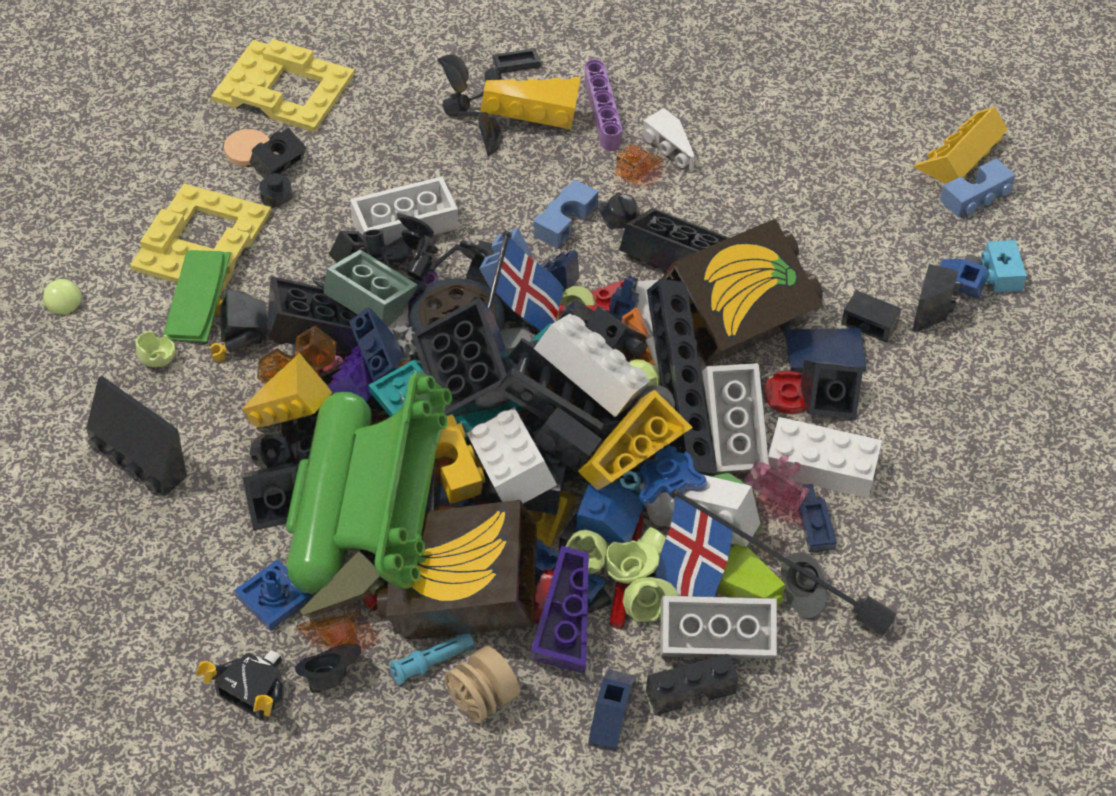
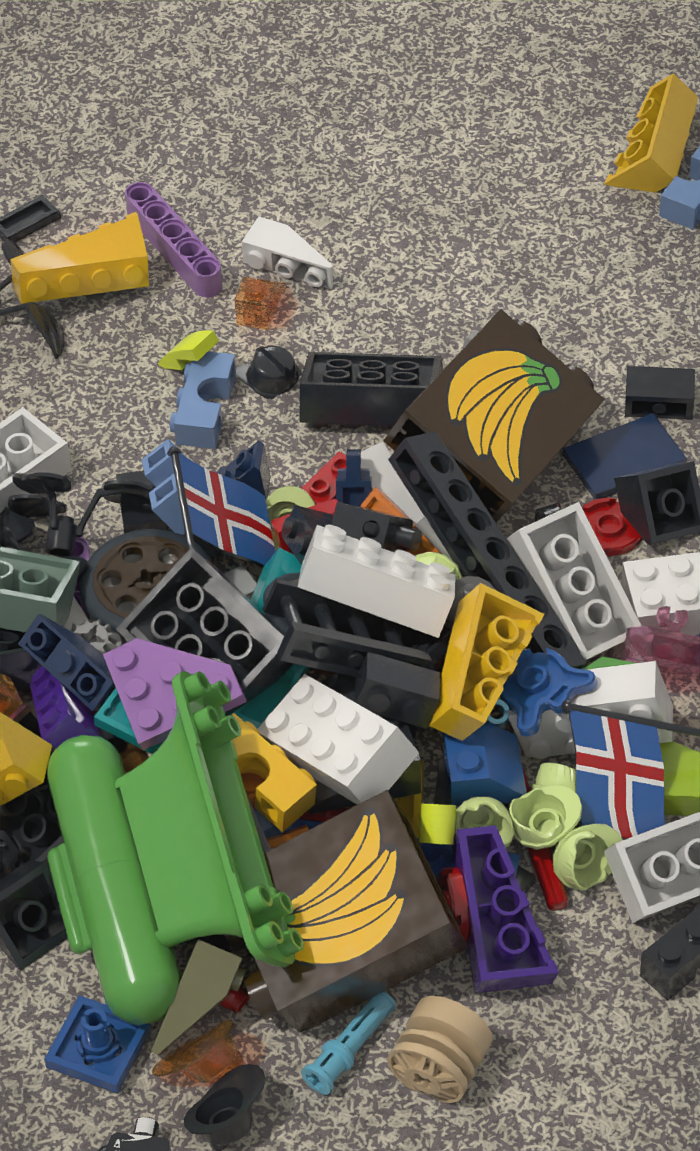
camera: 20 degrees left, 0 degrees up
(415, 359) = (144, 683): none -> medium lavender plate
(553, 537) = (437, 824): none -> neon yellow piece
(571, 178) = (189, 349): none -> neon yellow slope
(611, 709) = (615, 1014): dark blue slope -> none

